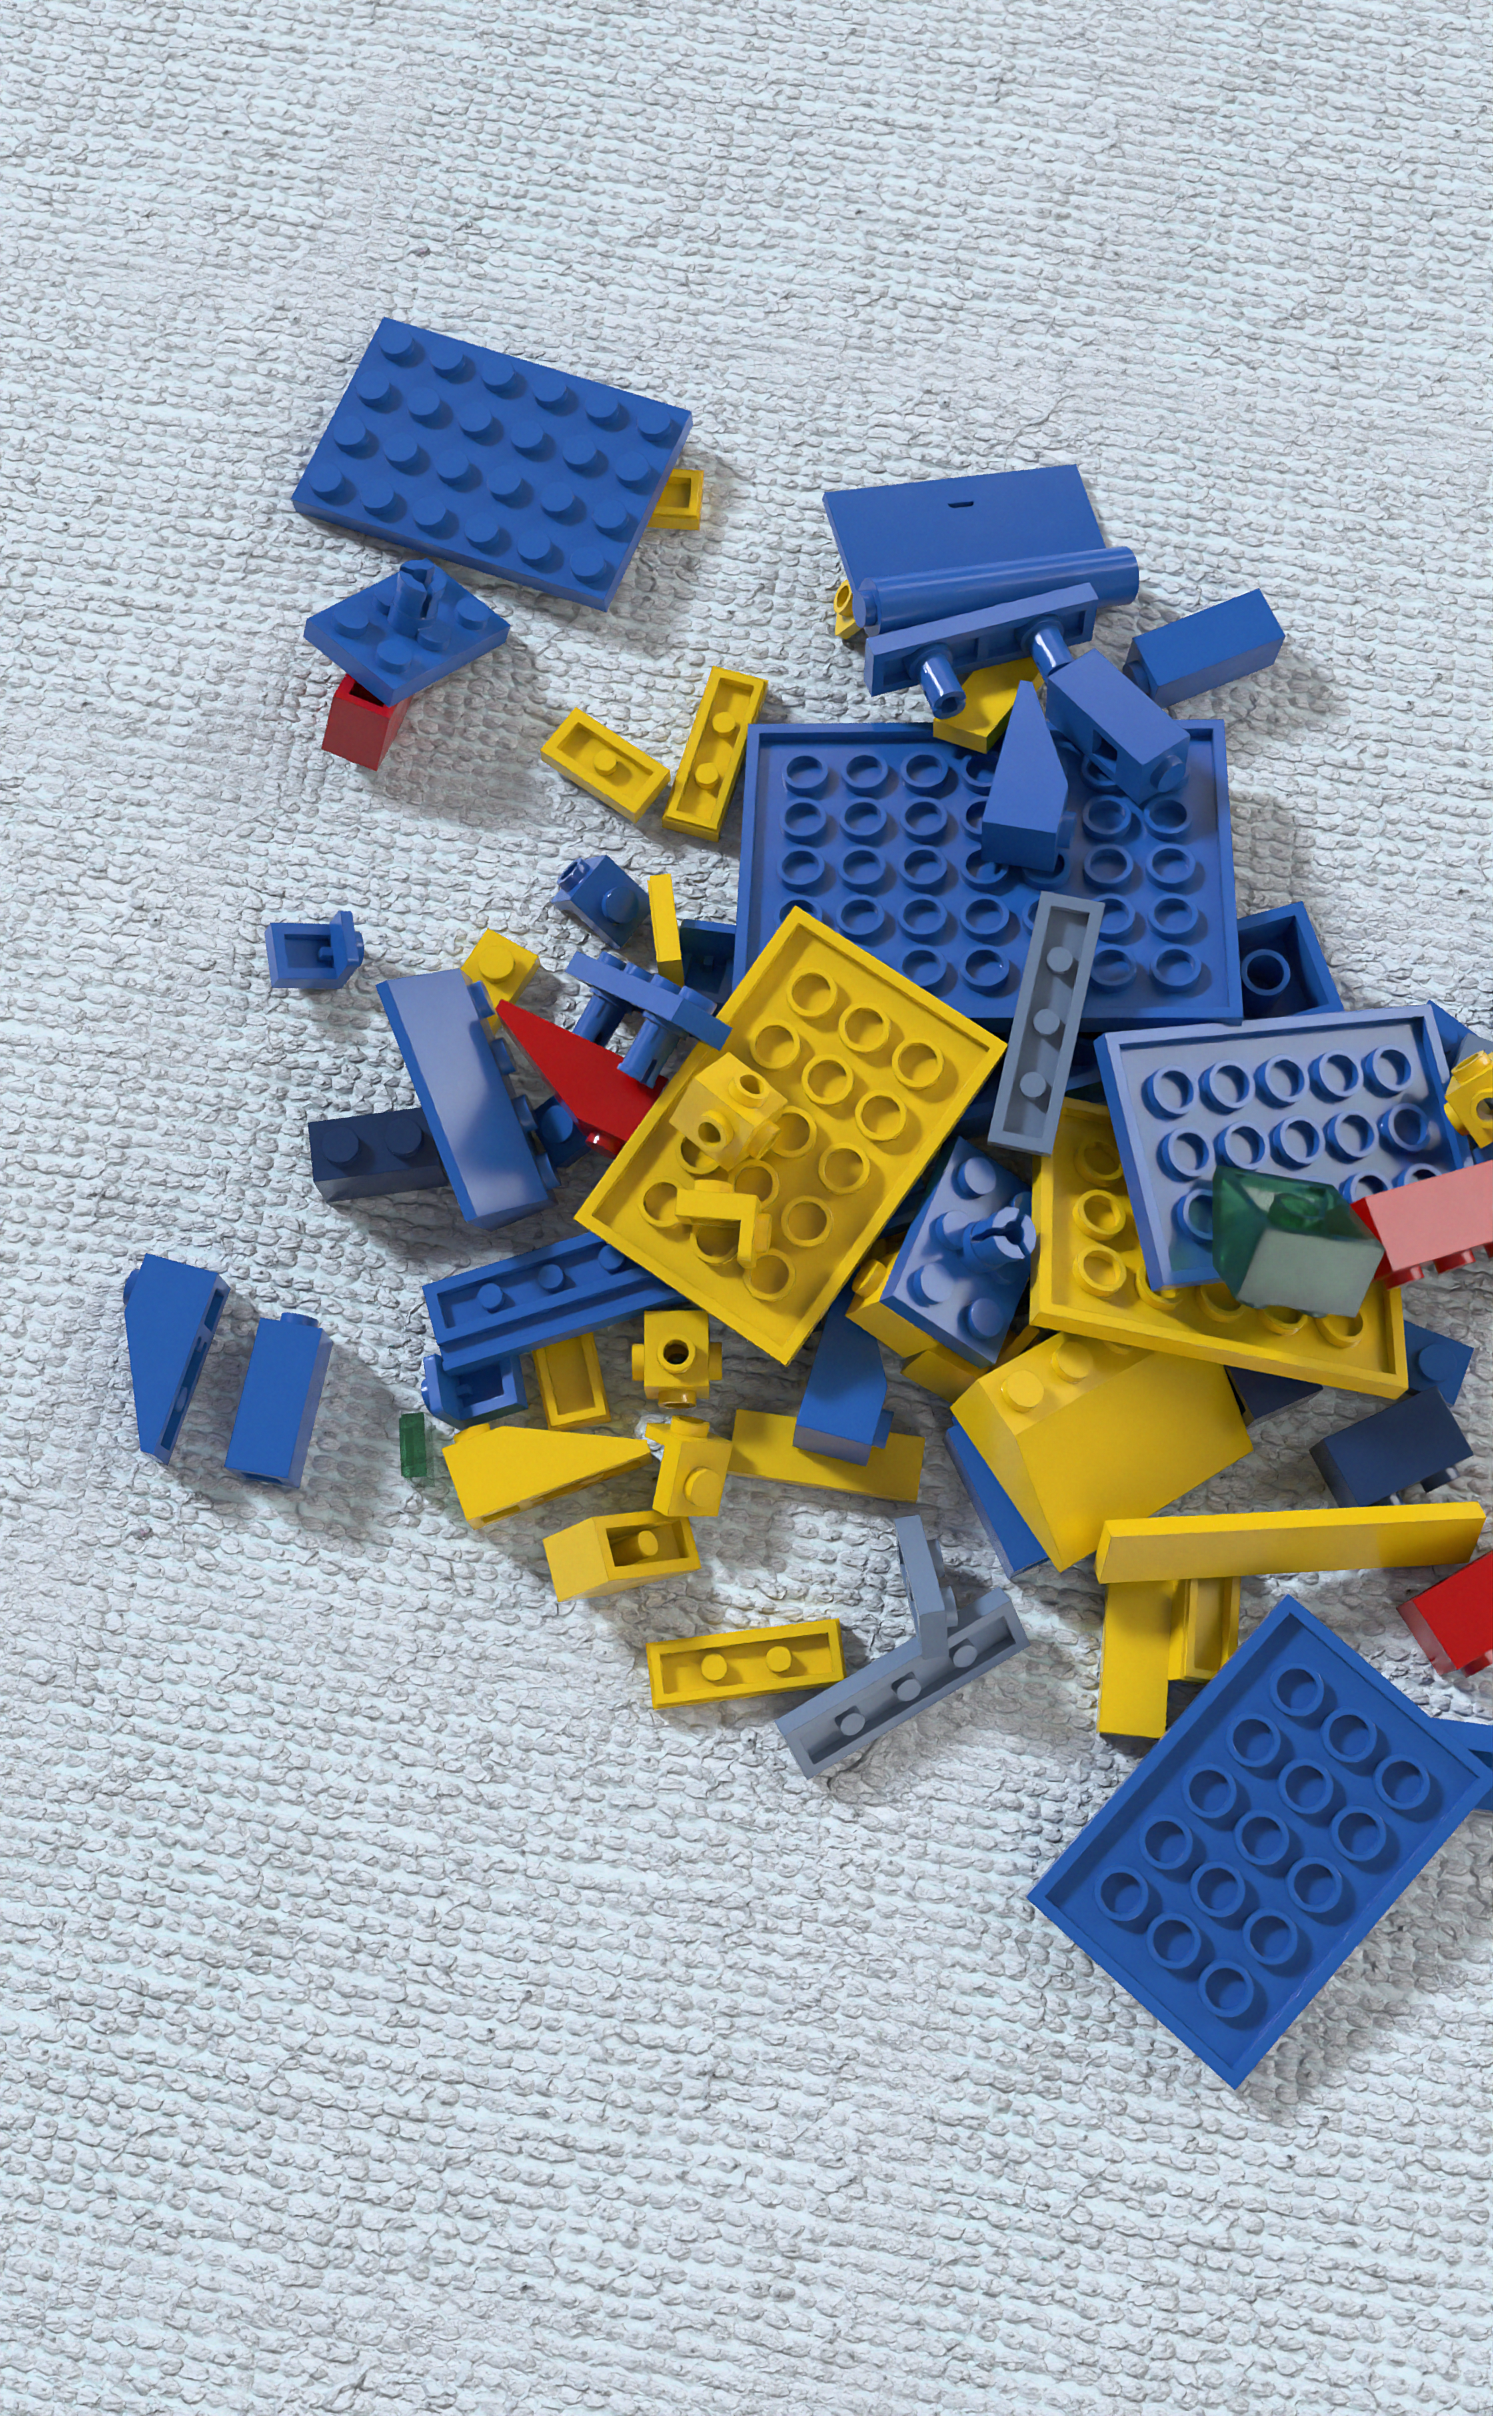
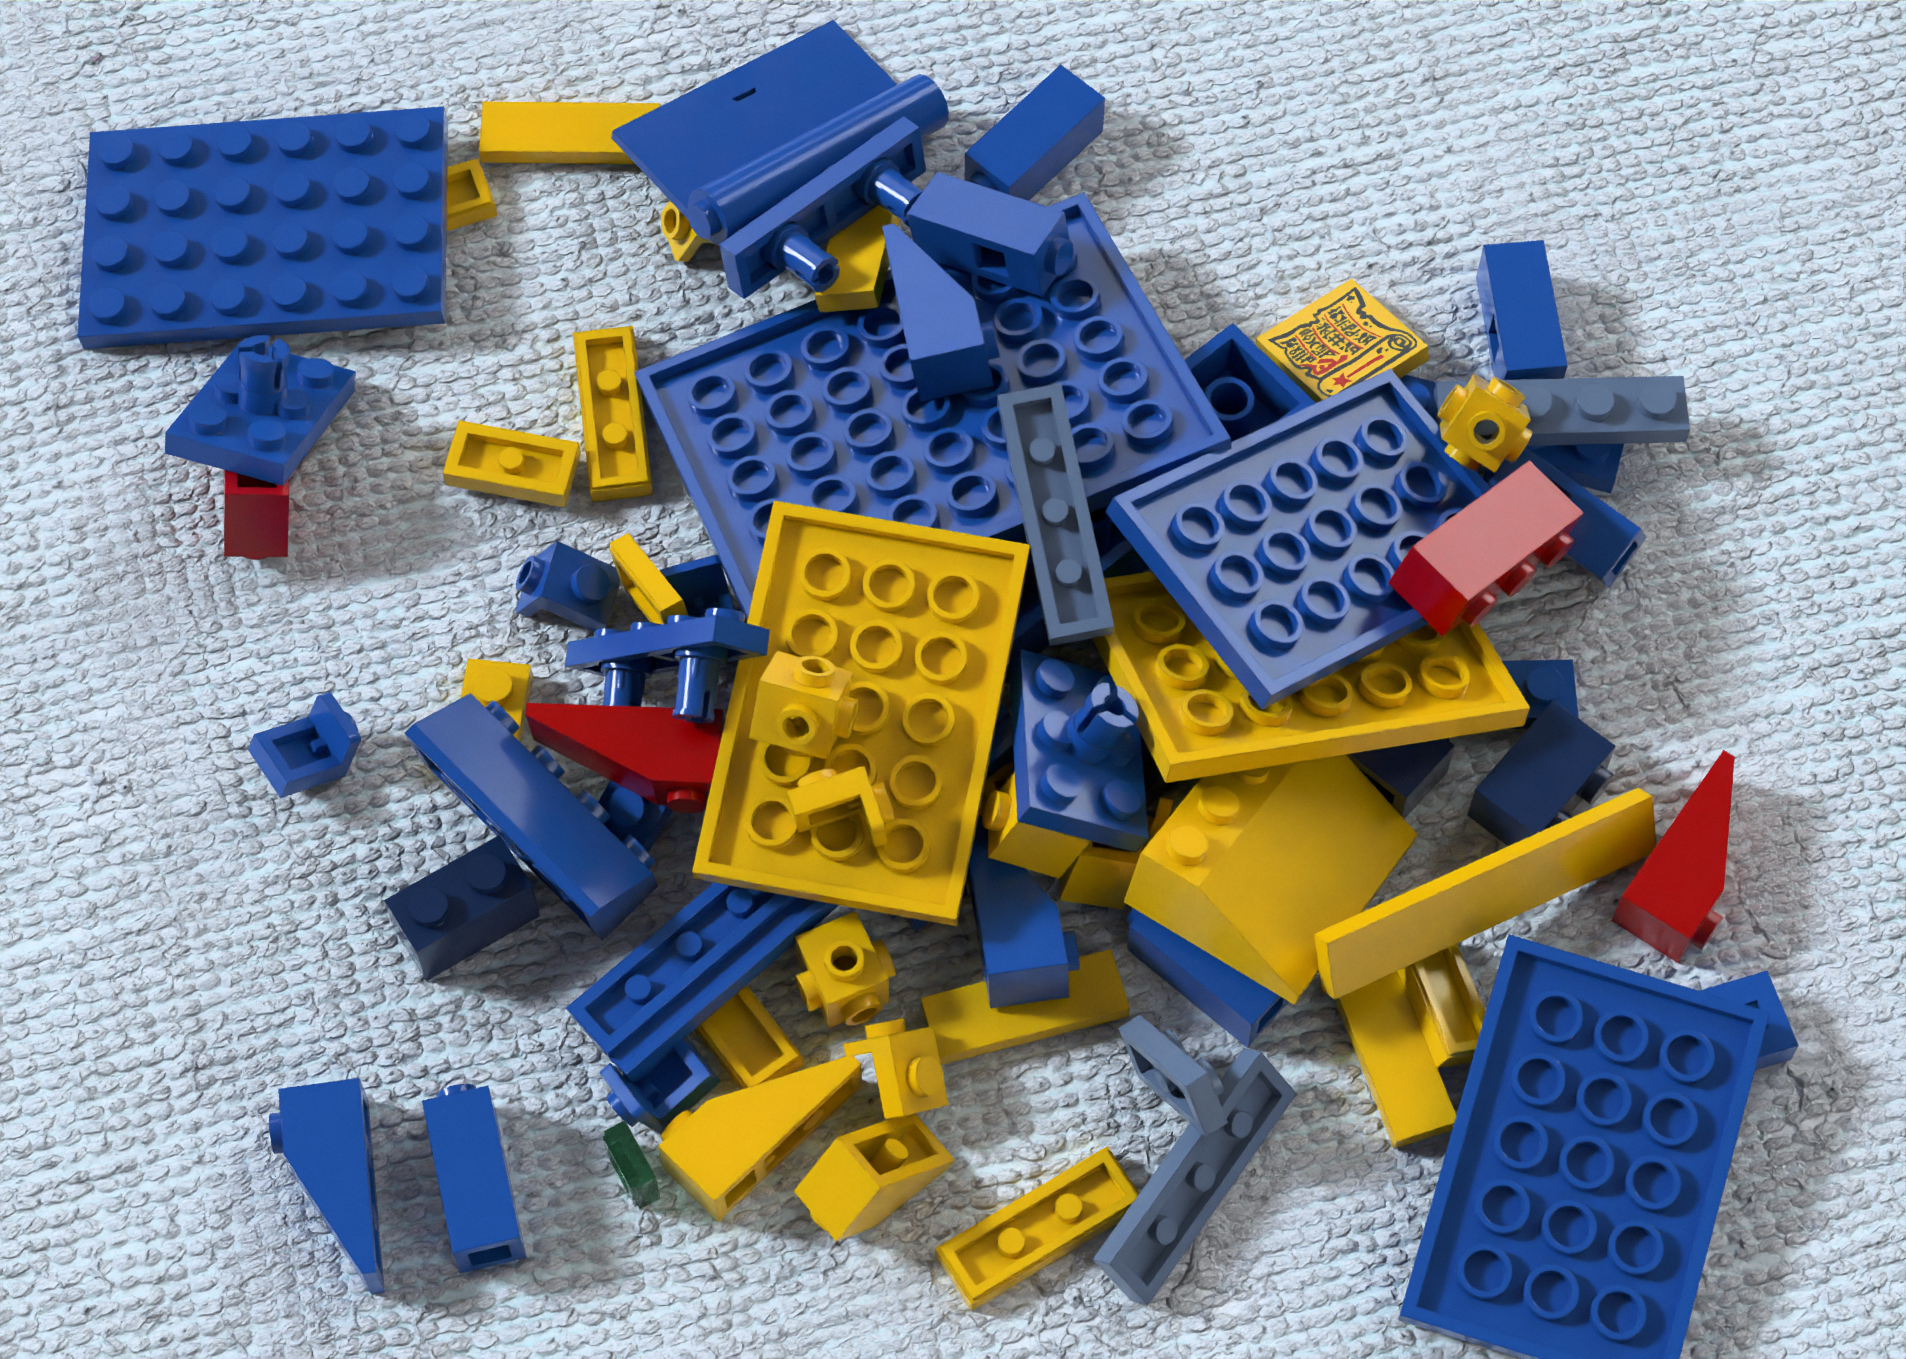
camera: 25 degrees left, 10 degrees down
(781, 471) = (555, 131): none -> yellow tile
(1290, 1243) = (1366, 615): clear green slope -> none
(1397, 958) = (1342, 343): none -> yellow tile

